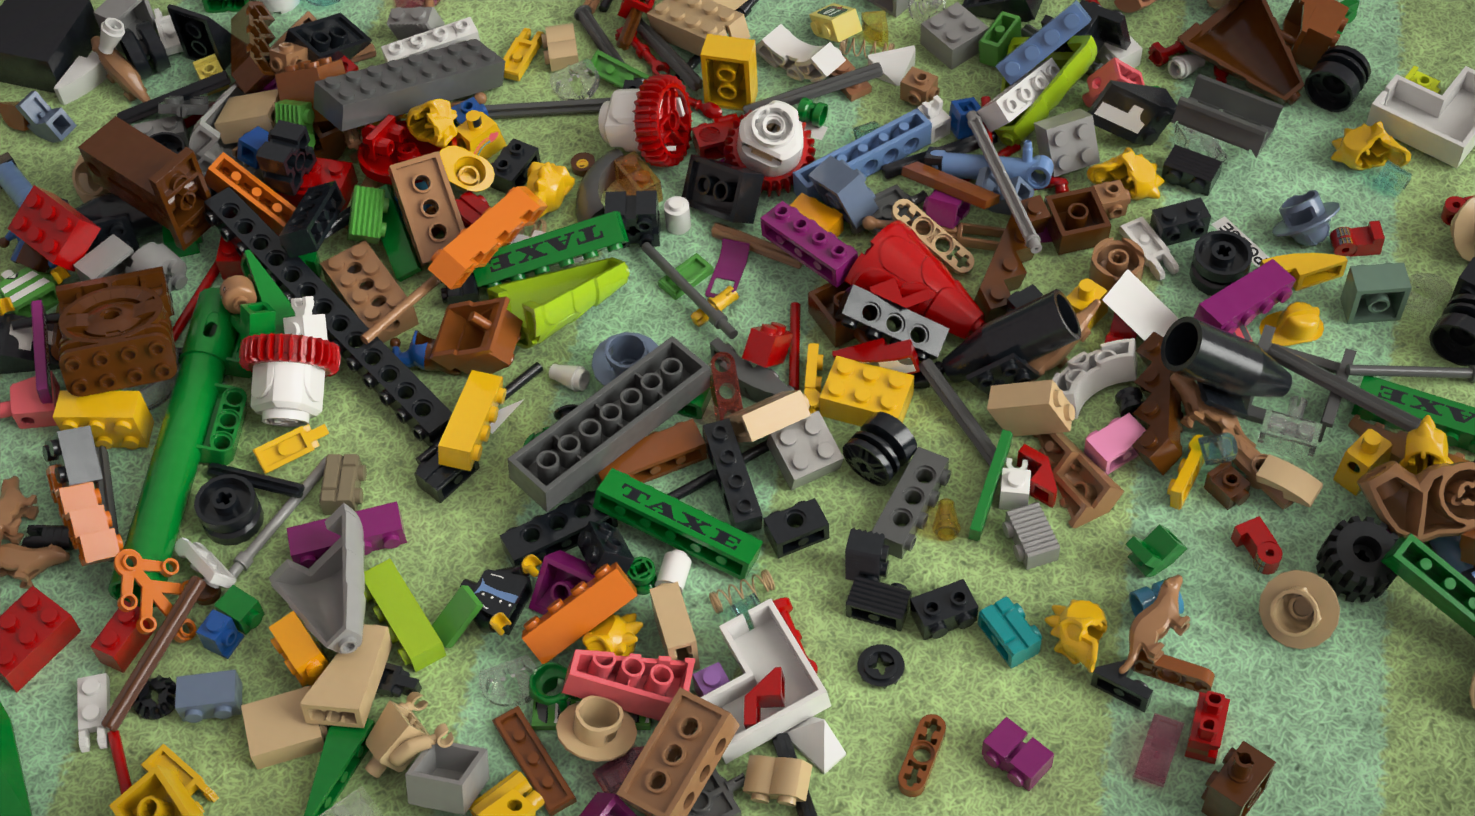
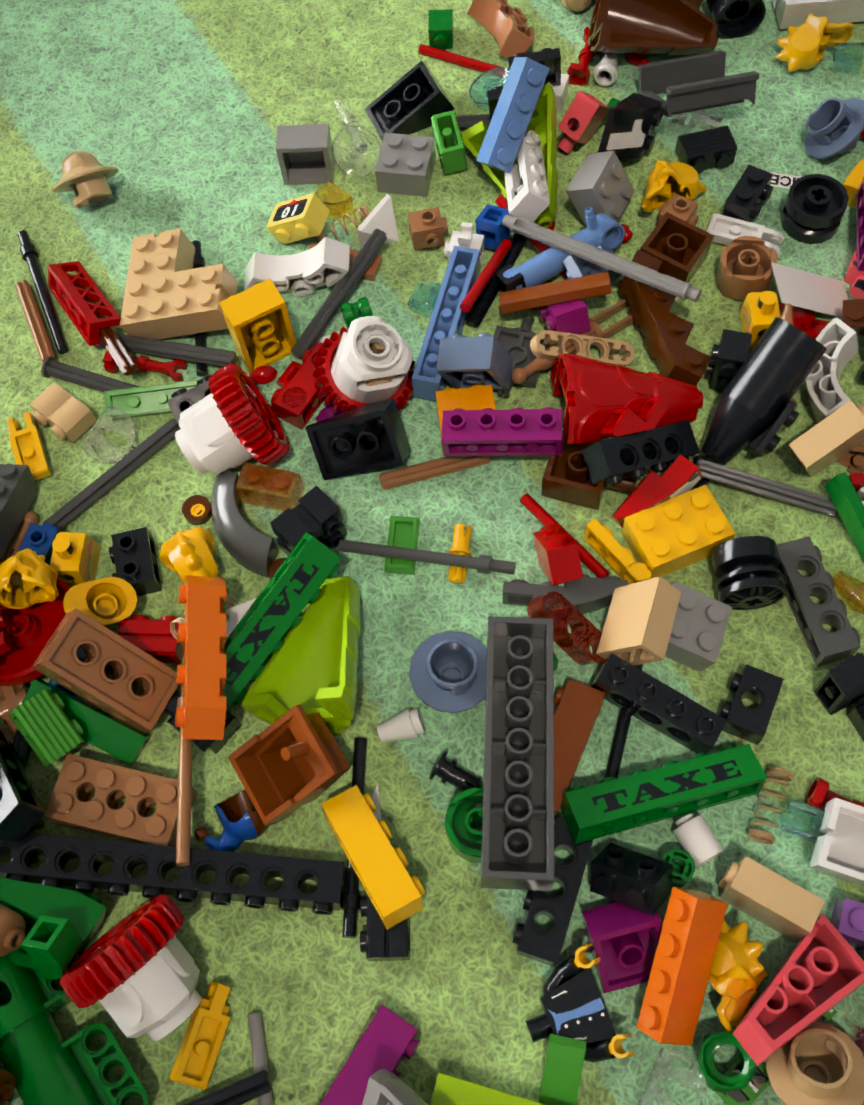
camera: 40 degrees left, 10 degrees up
(304, 321) = (108, 903): white brick -> none
(342, 482) = (299, 1031): dark tan brick -> none
(677, 215) = (341, 491): white brick -> none
(730, 263) = (429, 505): magenta piece -> none
(920, 143) = (485, 275): none -> red bar

